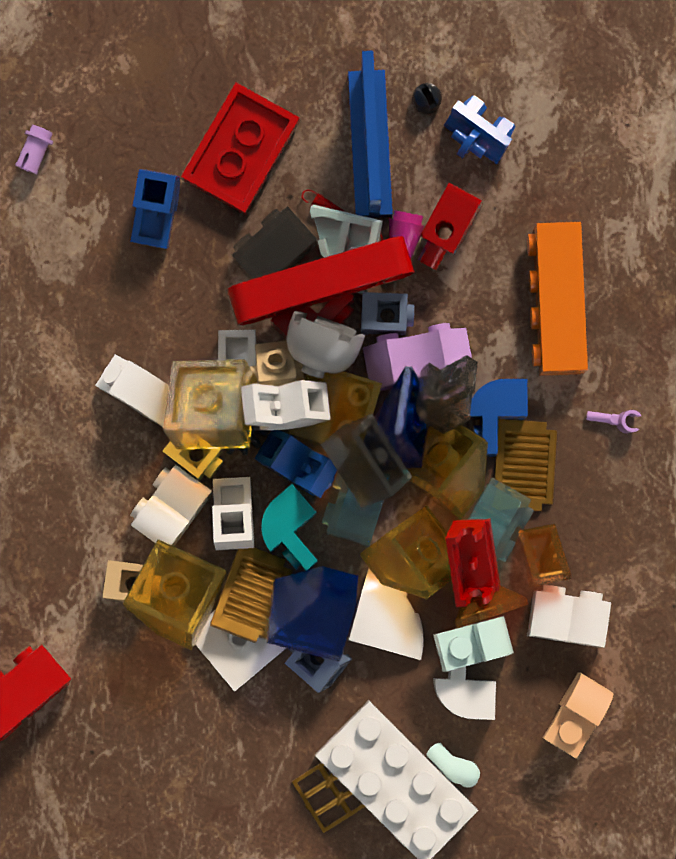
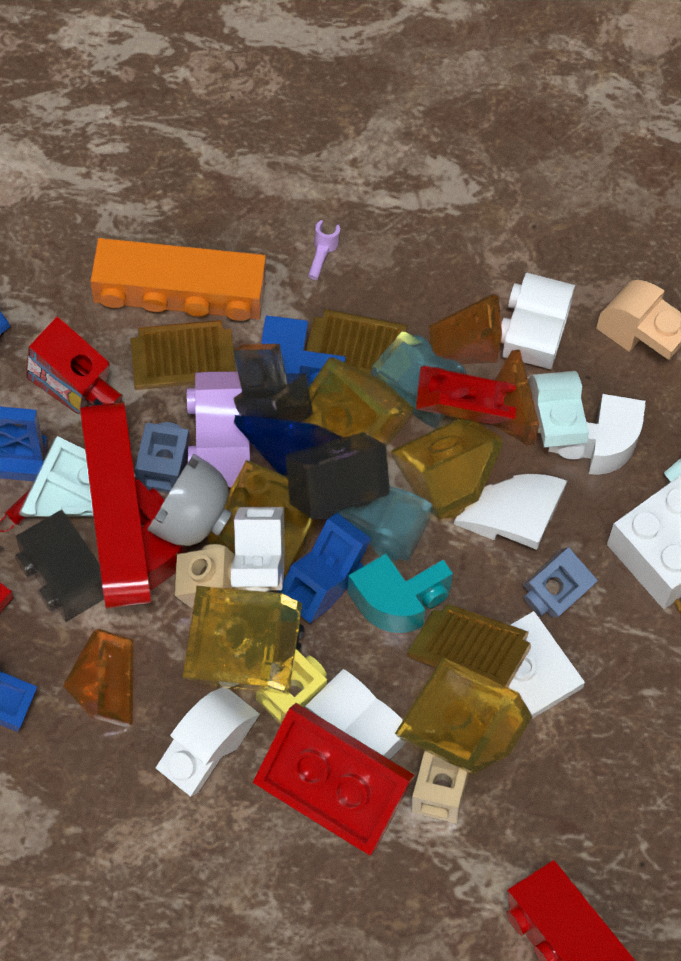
camera: 85 degrees left, 20 degrees down
(117, 495) = (333, 778): none -> red plate
(183, 301) = (104, 678): none -> clear orange slope
(232, 514) = (381, 650): white brick -> none
(237, 345) = (171, 624): white plate -> none
(313, 611) = (501, 569): clear blue slope -> none
(408, 226) = (65, 422): dark pink cone -> none
(492, 314) = (176, 352): none -> pearl gold window

